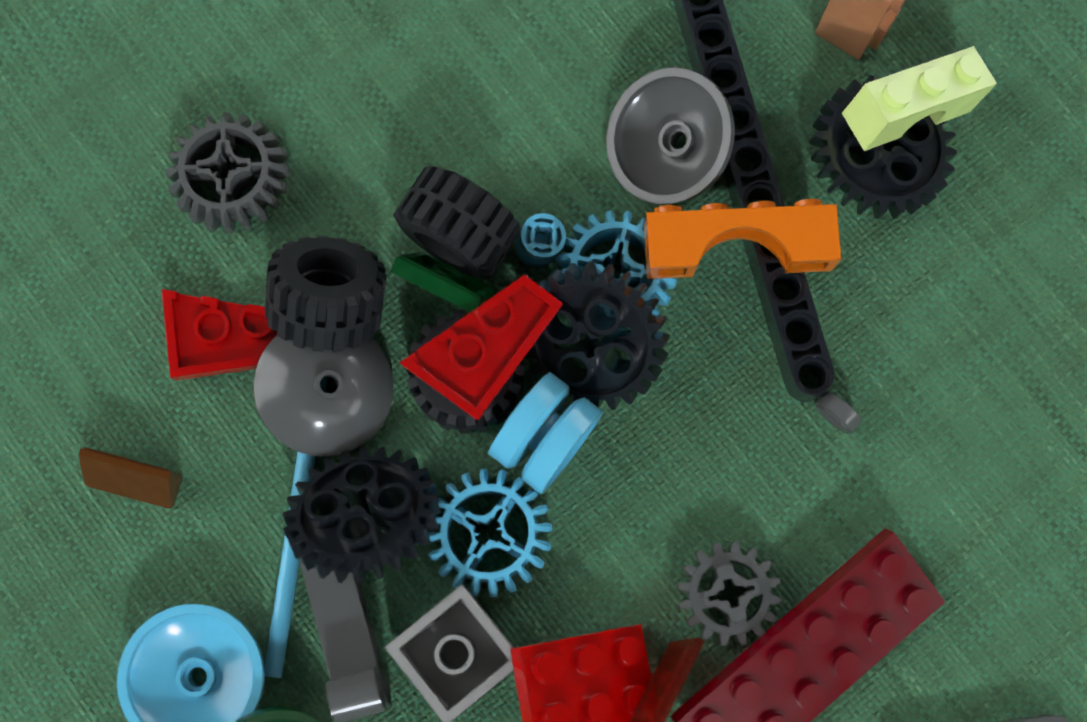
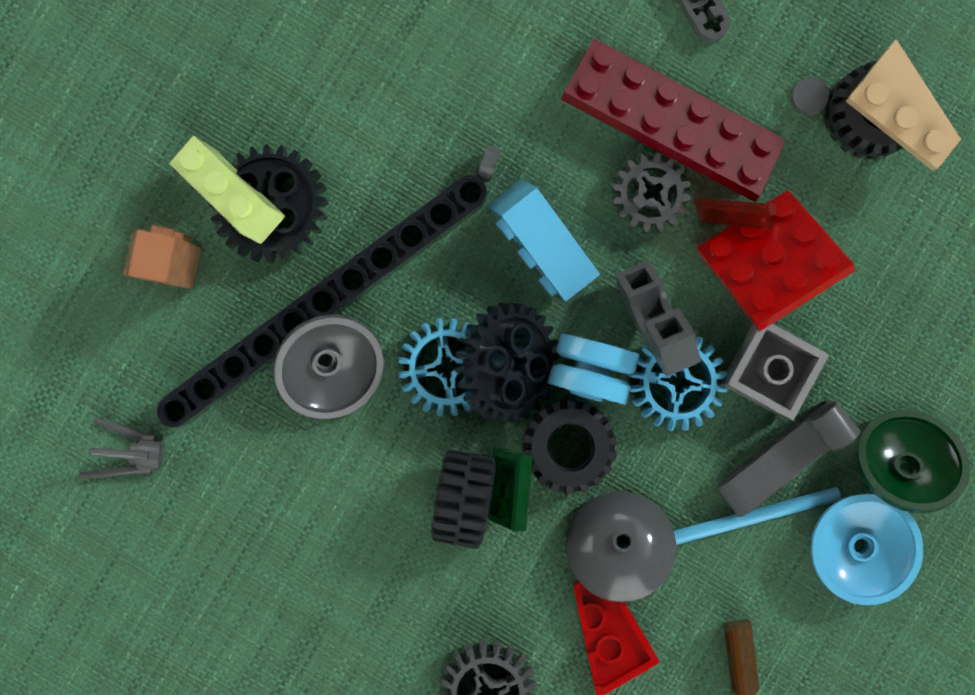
camera: 110 degrees left, 10 degrees up
(324, 293) = (577, 567): black tyre -> none
(383, 496) = (736, 492): black gear -> none
(485, 346) = (554, 437): red wing -> none
(533, 246) = (449, 436): medium azure wheel -> none
(575, 530) = (662, 328): none -> dark grey arch
(720, 437) = (542, 240): none -> medium azure wedge
(798, 235) = (374, 239): orange arch -> none

